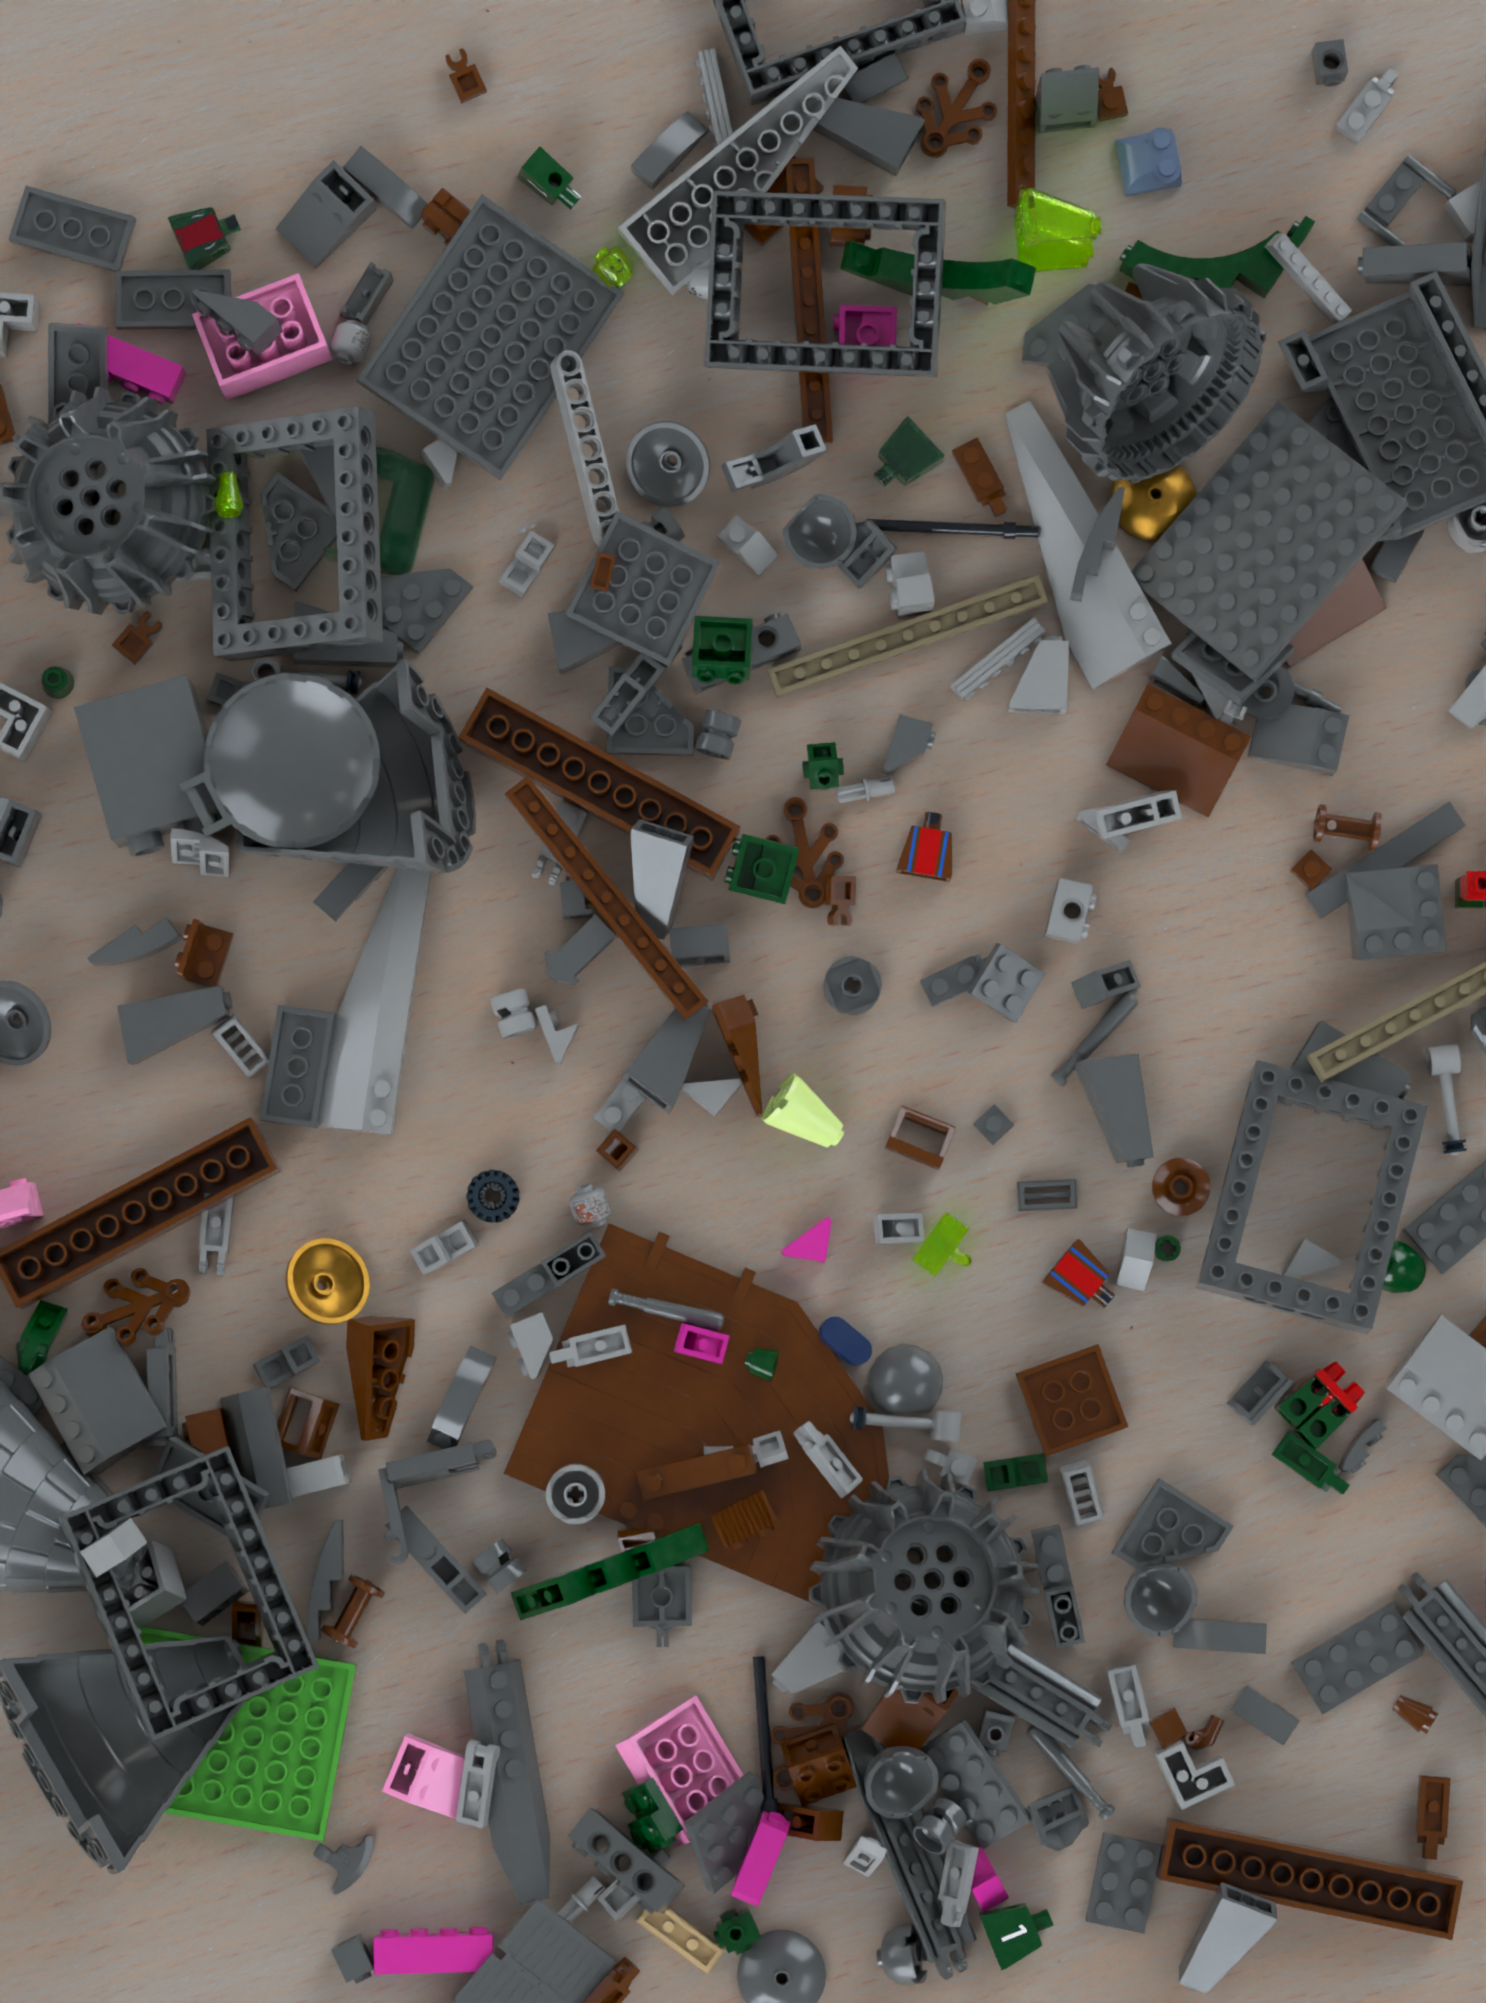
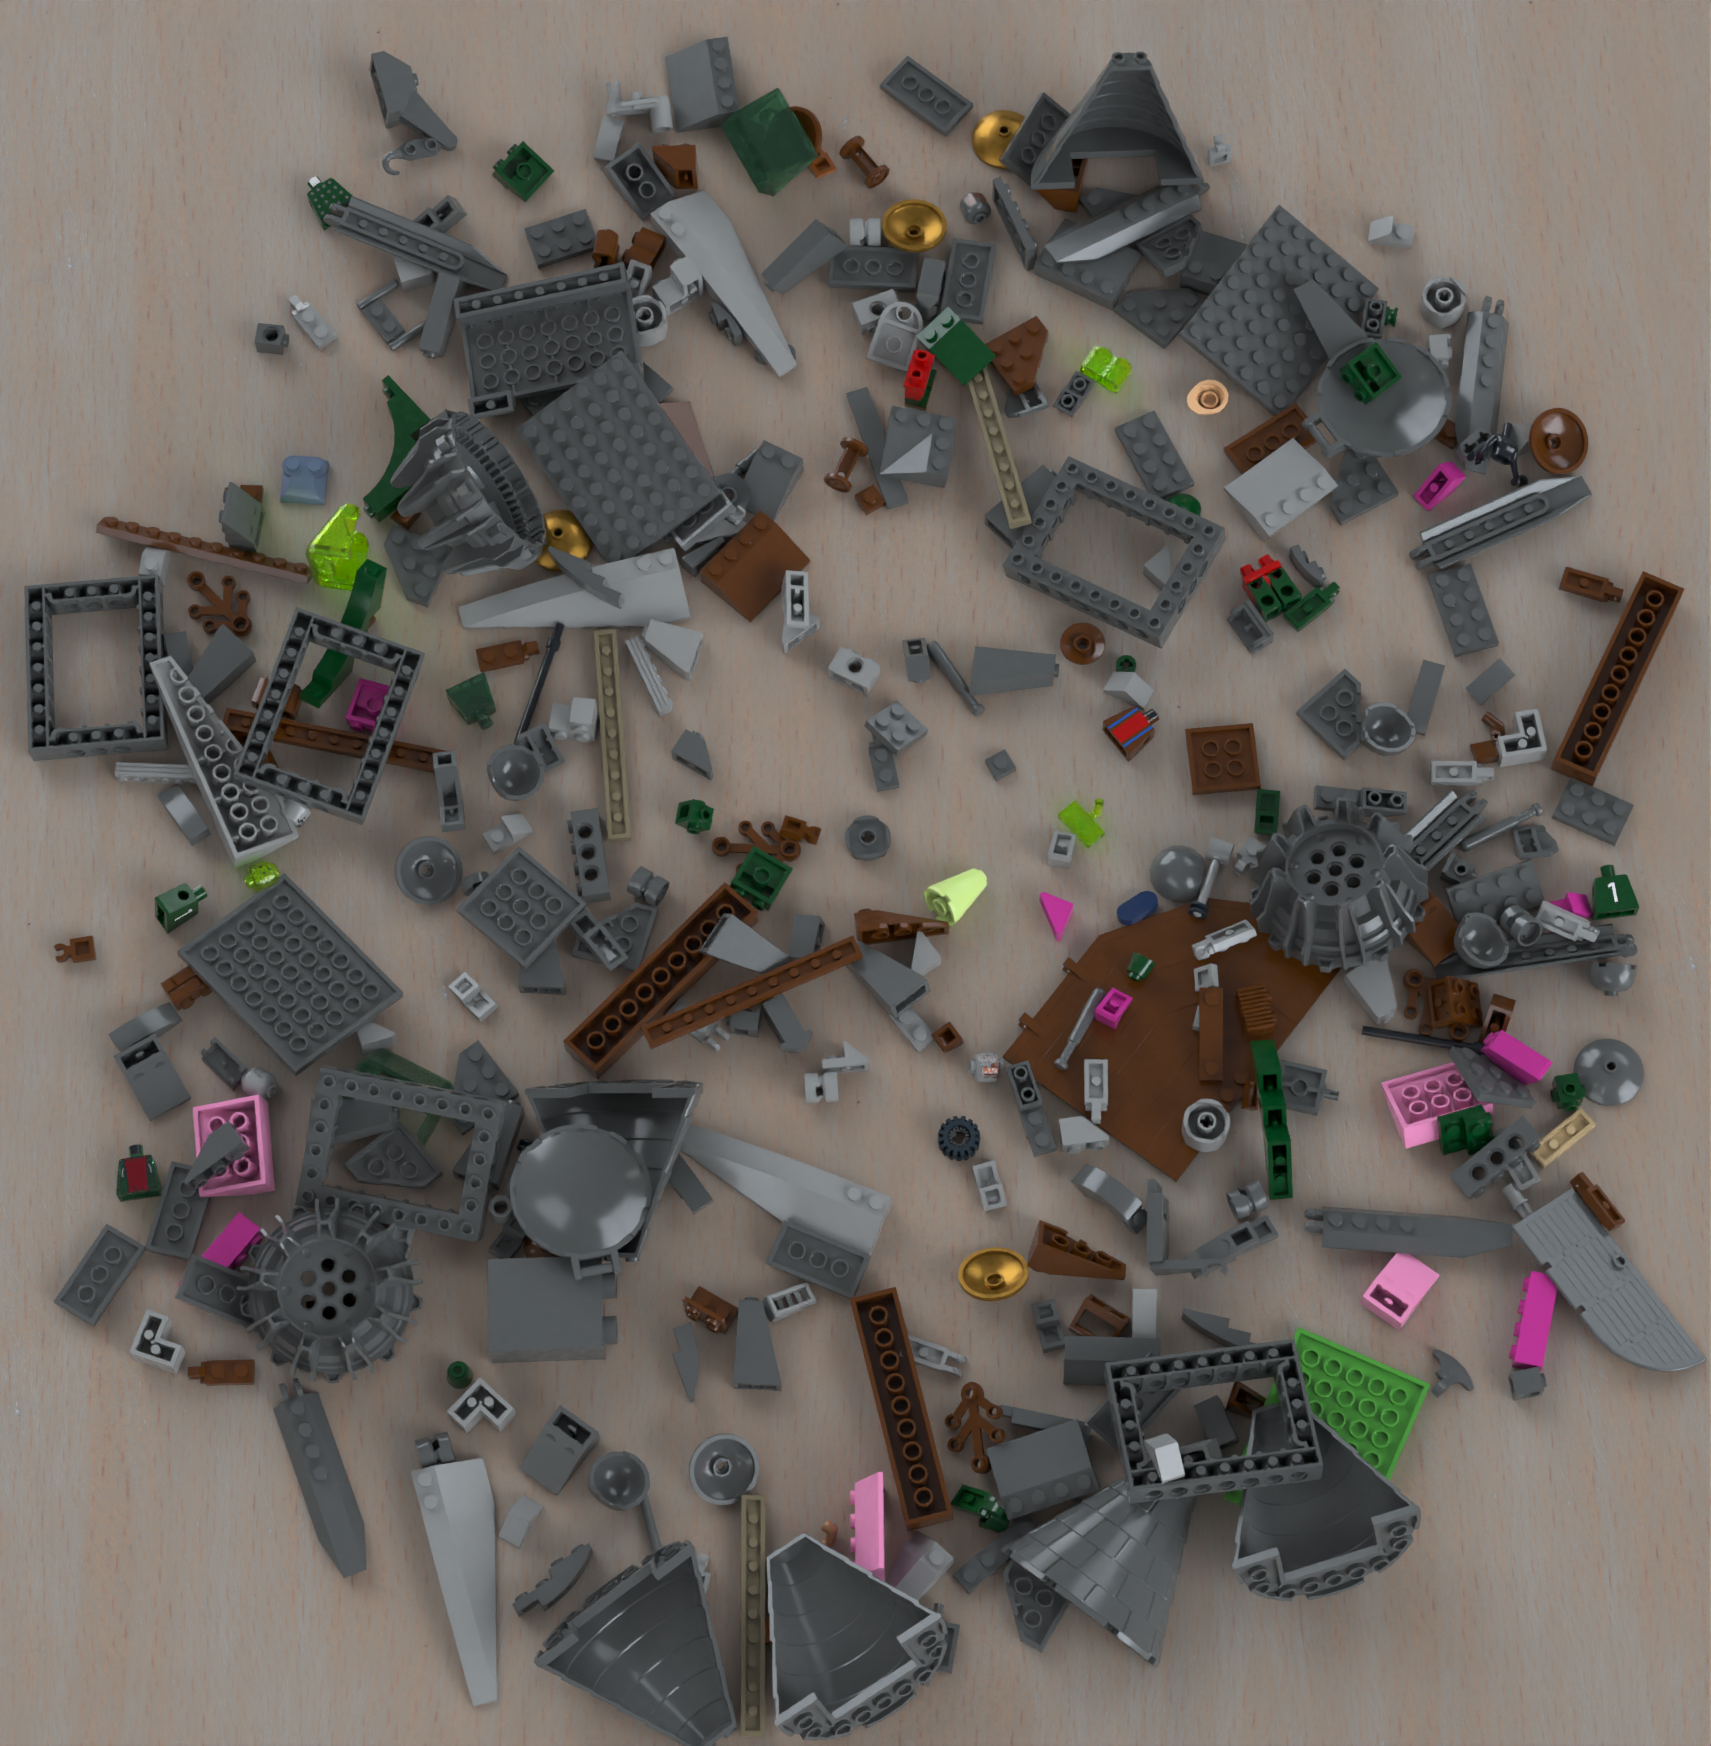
camera: 70 degrees left, 15 degrees down
(134, 641) = (445, 1304): reddish brown plate -> none
(196, 849) = (629, 1287): light grey slope -> none
(206, 1430) = (1087, 1396): reddish brown slope -> none
(228, 497) = (357, 1193): clear neon green cone -> none
(352, 1611) = (1255, 1317): reddish brown hose -> none
(477, 1784) = (1413, 1254): light grey plate -> none
(589, 435) = (388, 926): light grey beam -> none
(602, 571) = (500, 929): reddish brown piece -> none
(722, 649) = (585, 861): dark green plate -> none
(865, 1855) = (1531, 983): light grey plate -> none
(866, 789) = (721, 792): light grey axle -> none
(916, 1153) = (1005, 826): reddish brown tile -> none
(927, 851) = (780, 759): torso -> none
(1047, 1183) = (1060, 758): dark grey tile -> none
(1073, 1469) = (1285, 777): light grey slope -> none
(1224, 1936) = (1647, 744): slope -> none
(1308, 278) = (429, 390): light grey piece -> none
(1415, 1713) = (1513, 579): reddish brown cone -> none
(1445, 1061) = (1038, 443): light grey piece -> none

